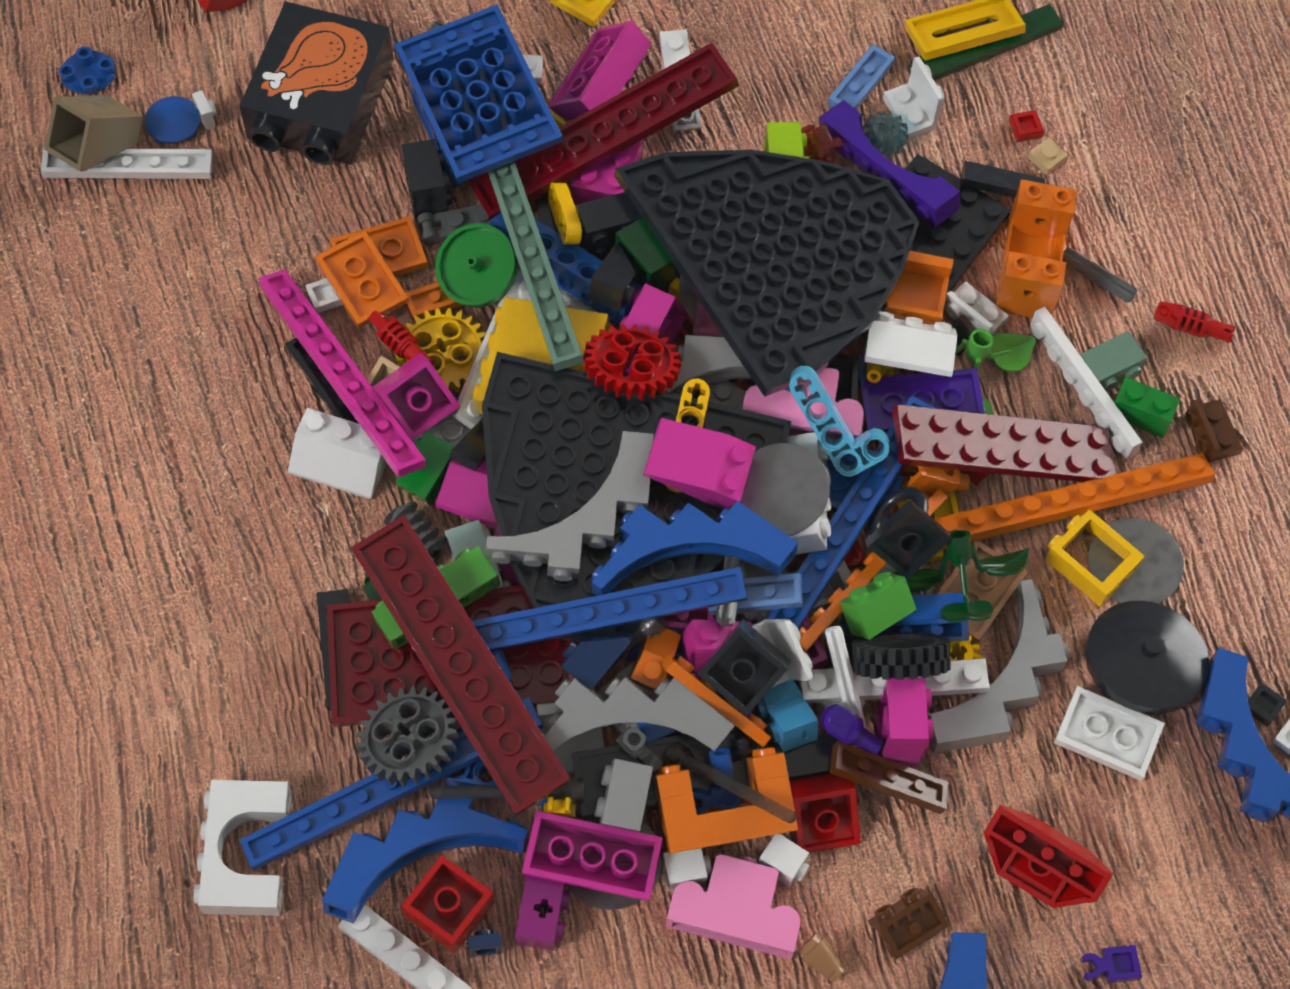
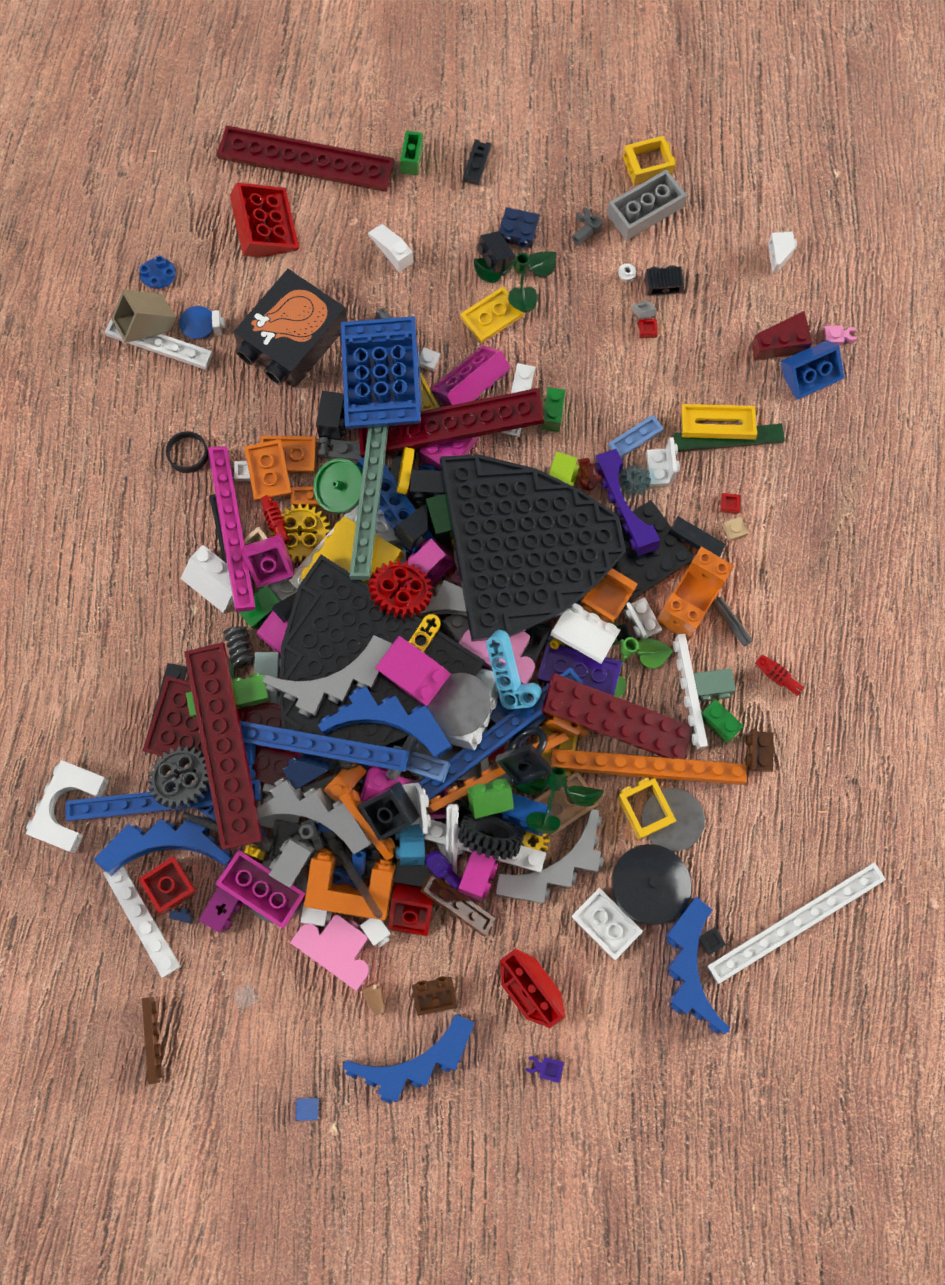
camera: 20 degrees right, 10 degrees up
(224, 271) = (187, 434): none -> black tyre
(742, 96) = (553, 409): none -> green brick

